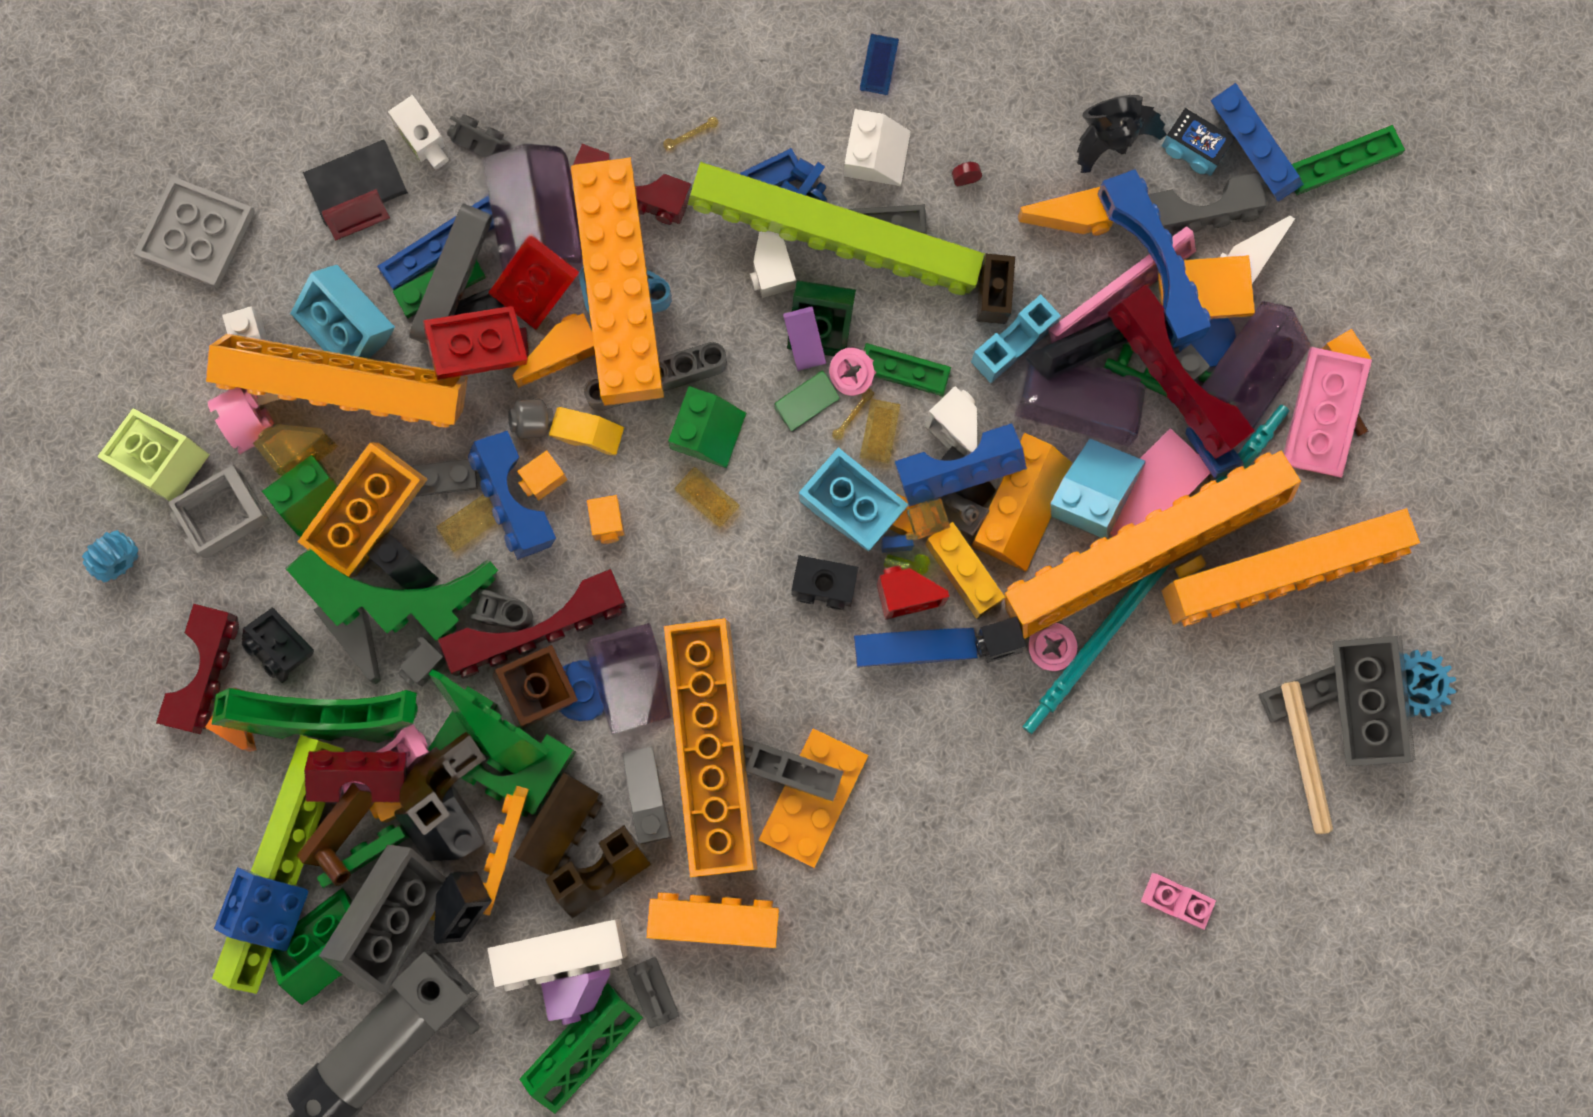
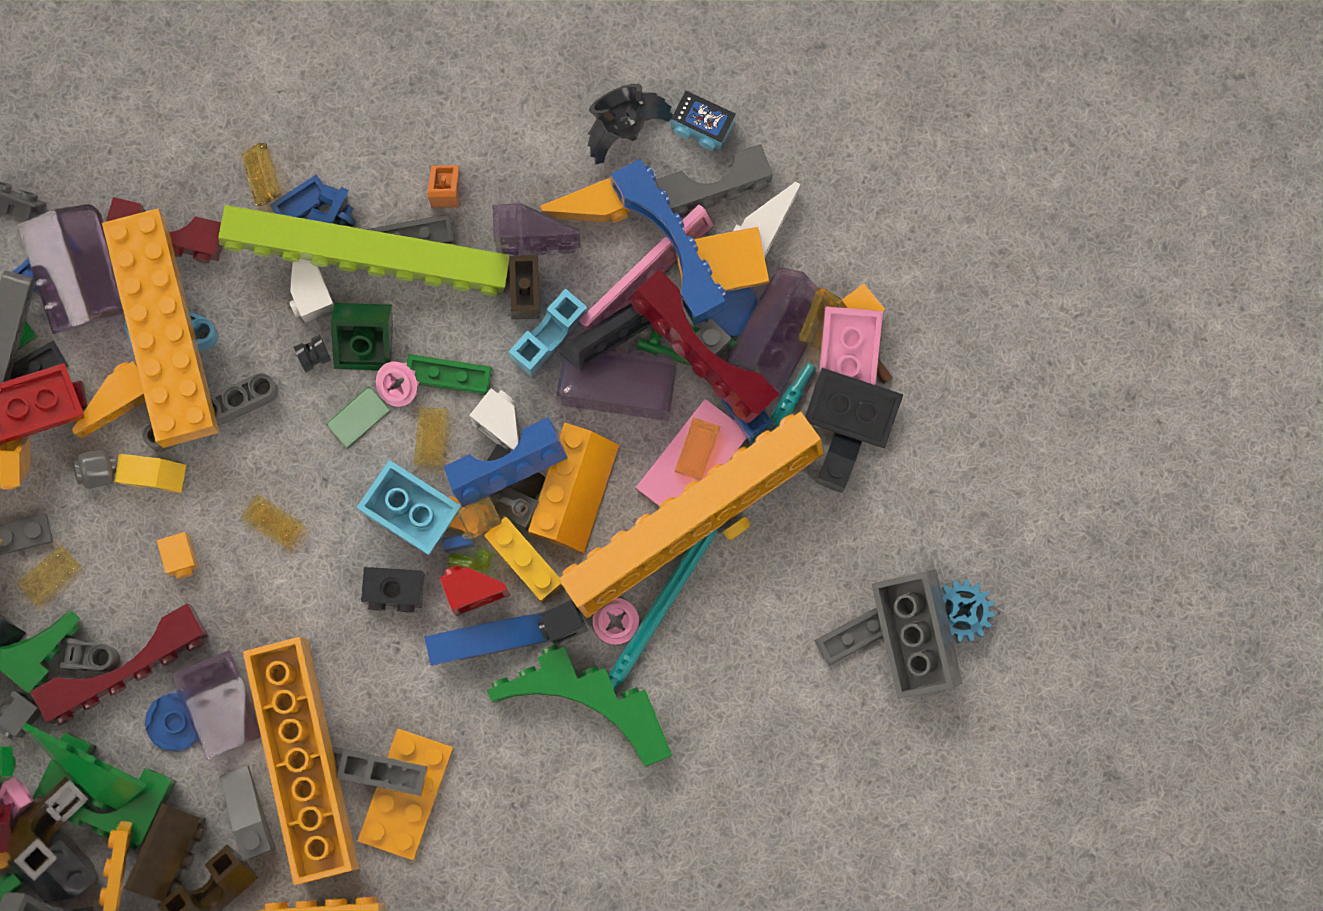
camera: 10 degrees left, 0 degrees up
(525, 529) = (102, 575): blue arch -> none
(533, 281) = (80, 338): red plate -> none
(534, 687) = (128, 725): reddish brown slope -> none
(541, 476) = (111, 522): light orange brick -> none
(669, 144) = (200, 184): clear yellow hinge -> none
(706, 427) = (264, 455): green slope -> none
(735, 140) = (261, 174): none -> clear yellow plate
(767, 329) = (312, 353): none -> black wheel
(804, 338) = (347, 358): medium lavender tile -> none
(839, 432) = (392, 443): clear yellow hinge -> none
(876, 148) = (397, 165): white slope -> none
(879, 64) = (392, 82): clear blue tile -> none
(922, 177) = (444, 186): none -> orange slope
(966, 173) = (486, 178): dark red tile -> none
(987, 697) = (557, 678): none -> green arch
(1008, 230) = (526, 229): none -> clear purple slope
(1096, 488) = (639, 465): medium azure slope -> none
(1158, 478) = (697, 449): none -> clear yellow tile
(1178, 901) = (758, 845): bright pink slope -> none
(1257, 142) = (761, 122): blue arch -> none
(1294, 365) = (813, 326): none -> clear yellow tile
(1297, 564) = (827, 517): light orange brick -> none
(1304, 512) = (839, 462): none -> black slope
(1307, 757) = (863, 694): tan axle -> none
(1328, 456) = (853, 407): none -> black tile
(1348, 158) = (844, 120): green plate -> none

